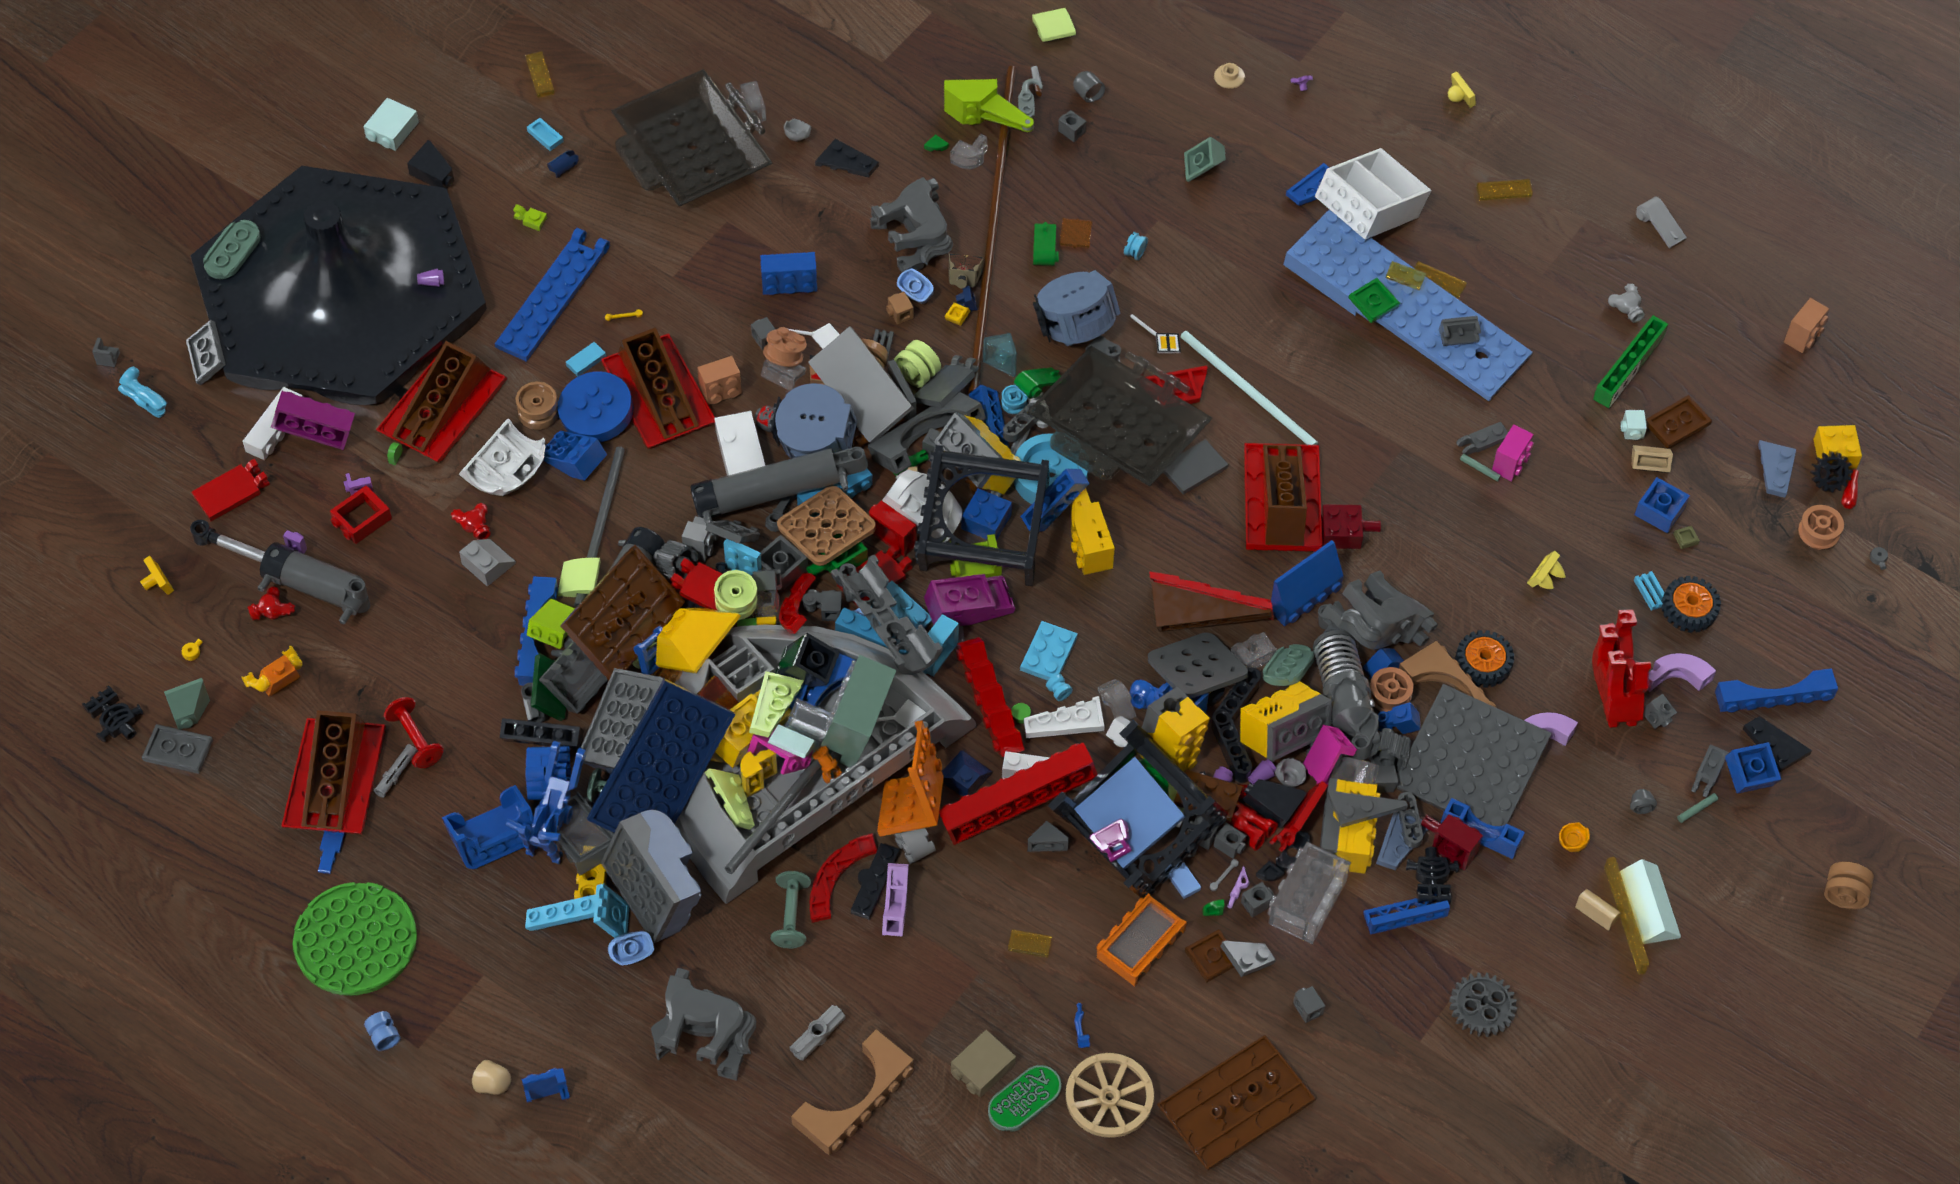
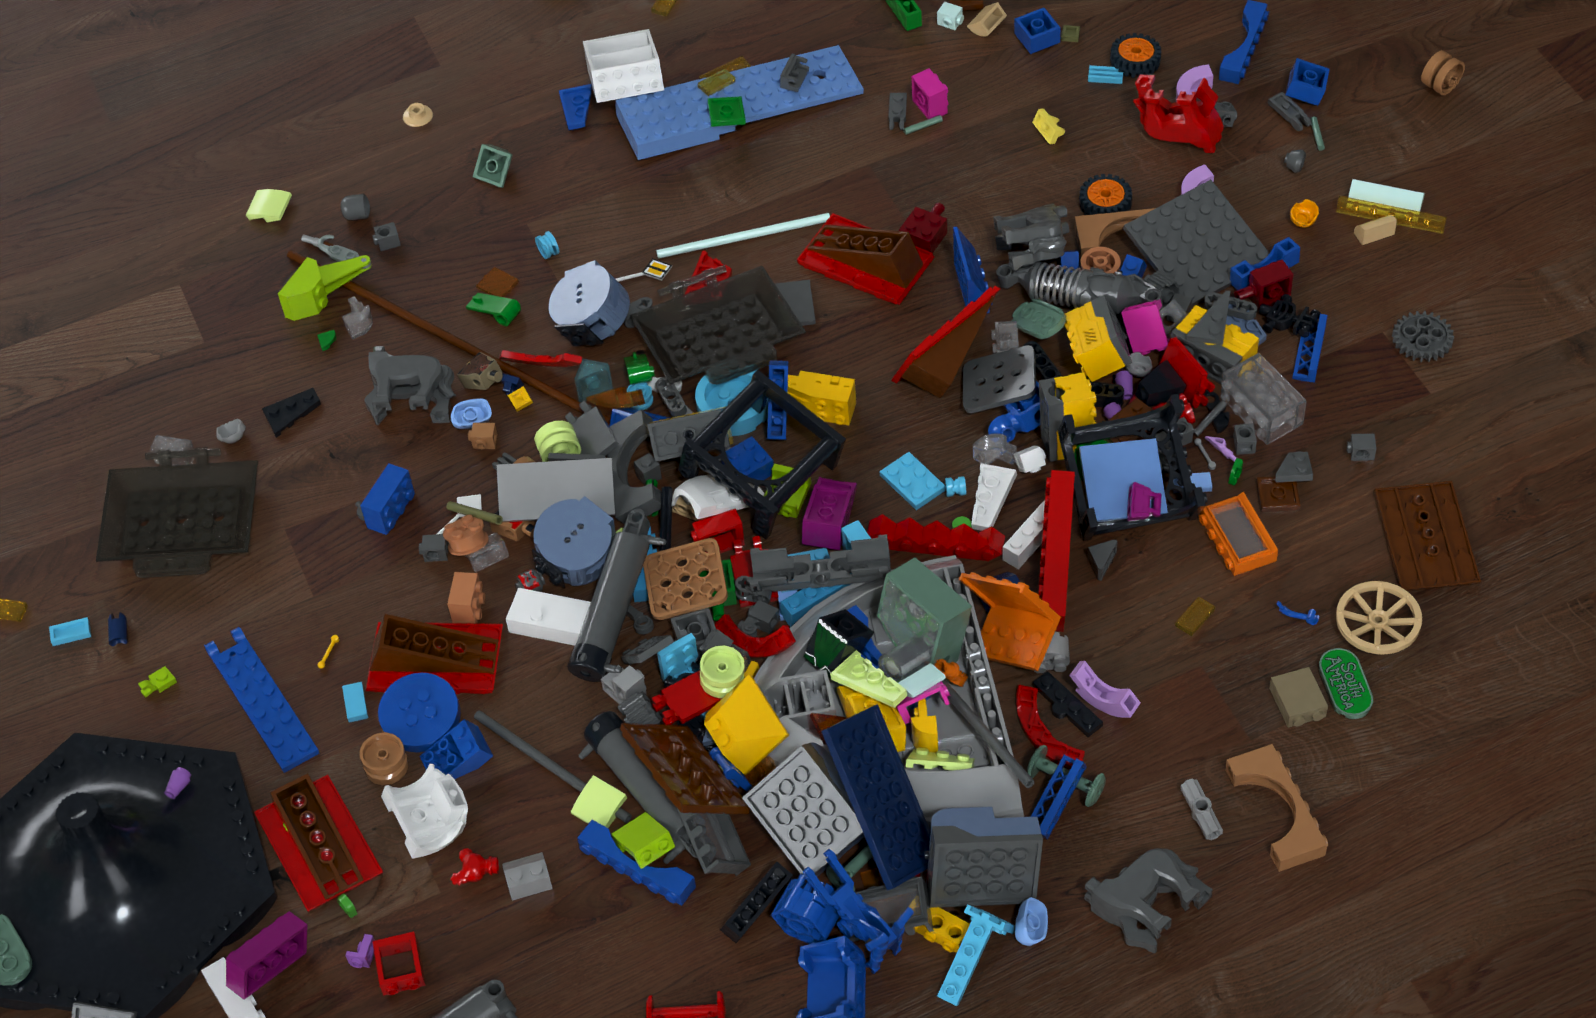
camera: 55 degrees left, 5 degrees down
(431, 167) = (35, 738): black slope -> none
(532, 714) = (716, 898): dark grey piece -> none
(541, 696) = (721, 882): dark green tile -> none
(763, 914) = (1062, 797): none -> blue fence
(810, 342) = (477, 513): none -> olive piece
(881, 483) = (666, 517): none -> black axle
(994, 383) = (617, 398): none -> clear orange slope
(1006, 316) = (562, 360): none -> red tile
(1263, 859) = (1209, 418): none -> dark grey piece
(1302, 81) = (465, 69): medium lavender plant -> none
(1784, 747) = (1282, 64): black wing -> none

